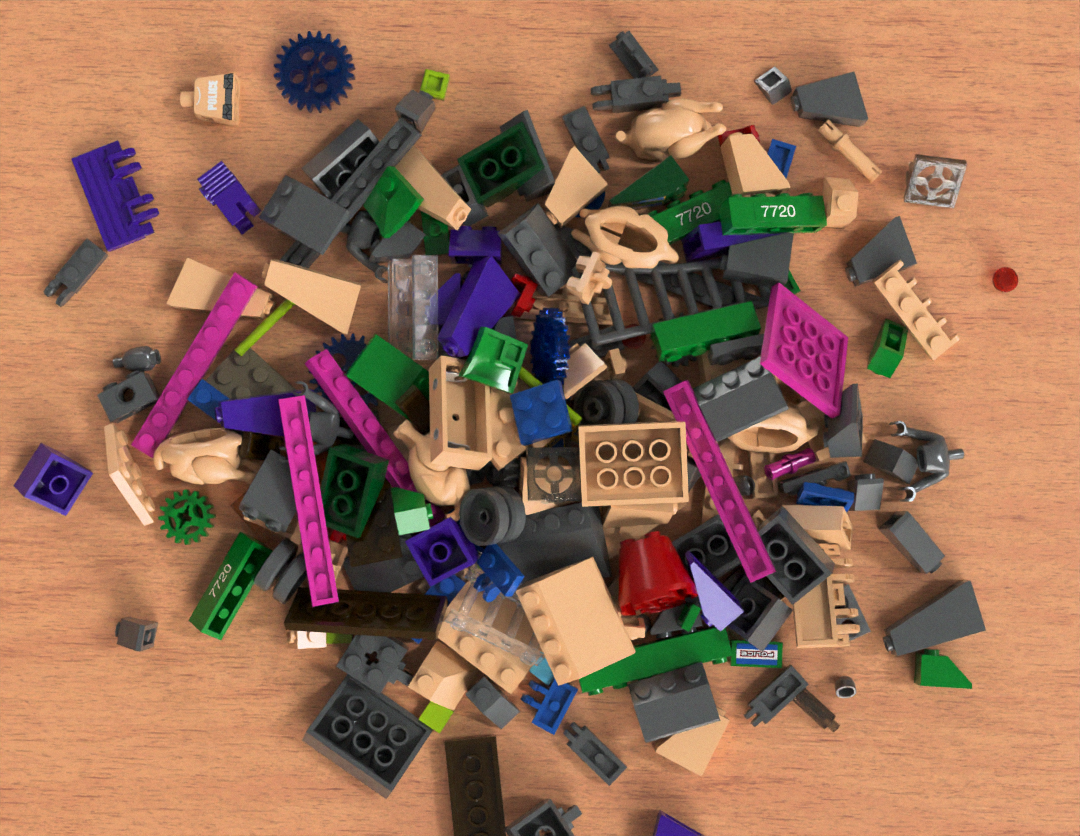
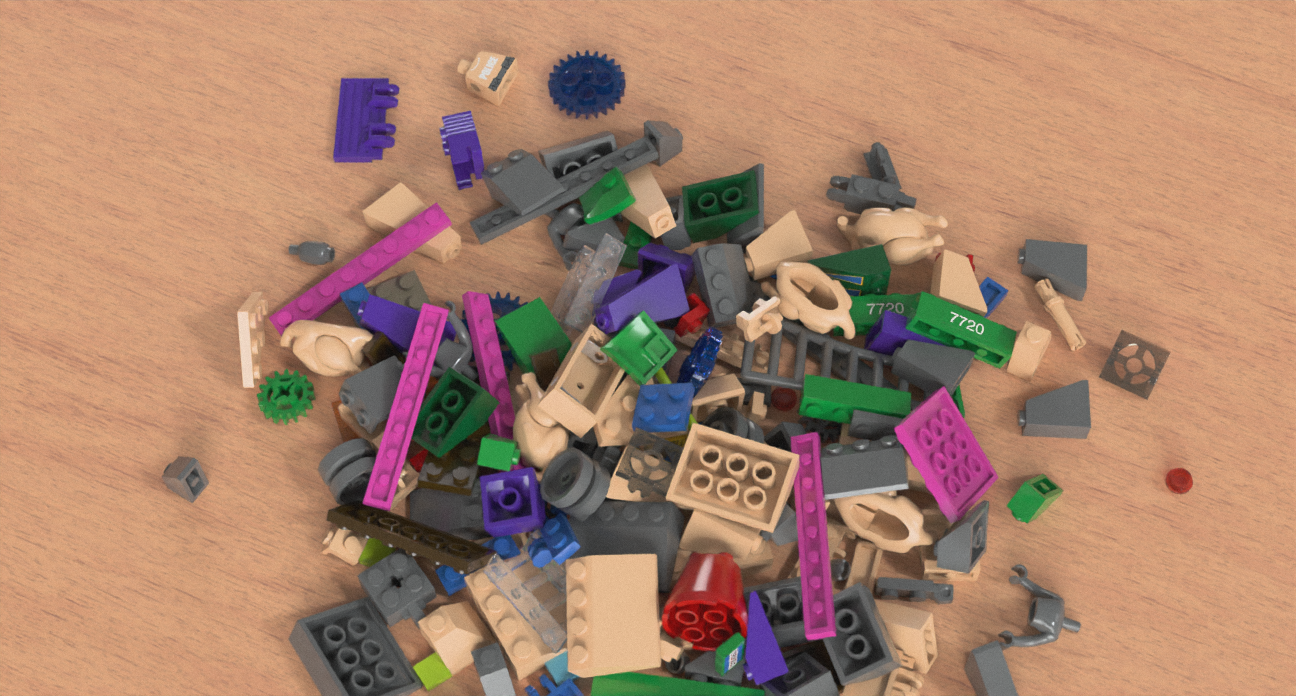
camera: 20 degrees right, 25 degrees down
(52, 479) = (183, 320): dark purple slope -> none
(76, 271) = (296, 166): dark grey hinge -> none
(113, 396) = (278, 287): dark grey brick -> none
(230, 586) = (290, 470): green brick -> none
(257, 333) = (452, 261): lime bar -> none
(317, 292) = (504, 251): light nougat slope -> none
(435, 84) = (691, 131): lime tile -> none
(586, 137) = (811, 217): dark grey hinge -> none
(774, 85) = (1006, 238): flat silver slope -> none
(789, 464) = (893, 566): dark pink pin -> none
(820, 495) = (910, 596): blue hinge -> none
(866, 492) = (961, 619): dark grey slope -> none
(891, 461) = (1003, 606): dark grey slope -> none
(913, 311) = (1072, 472): light nougat hinge -> none

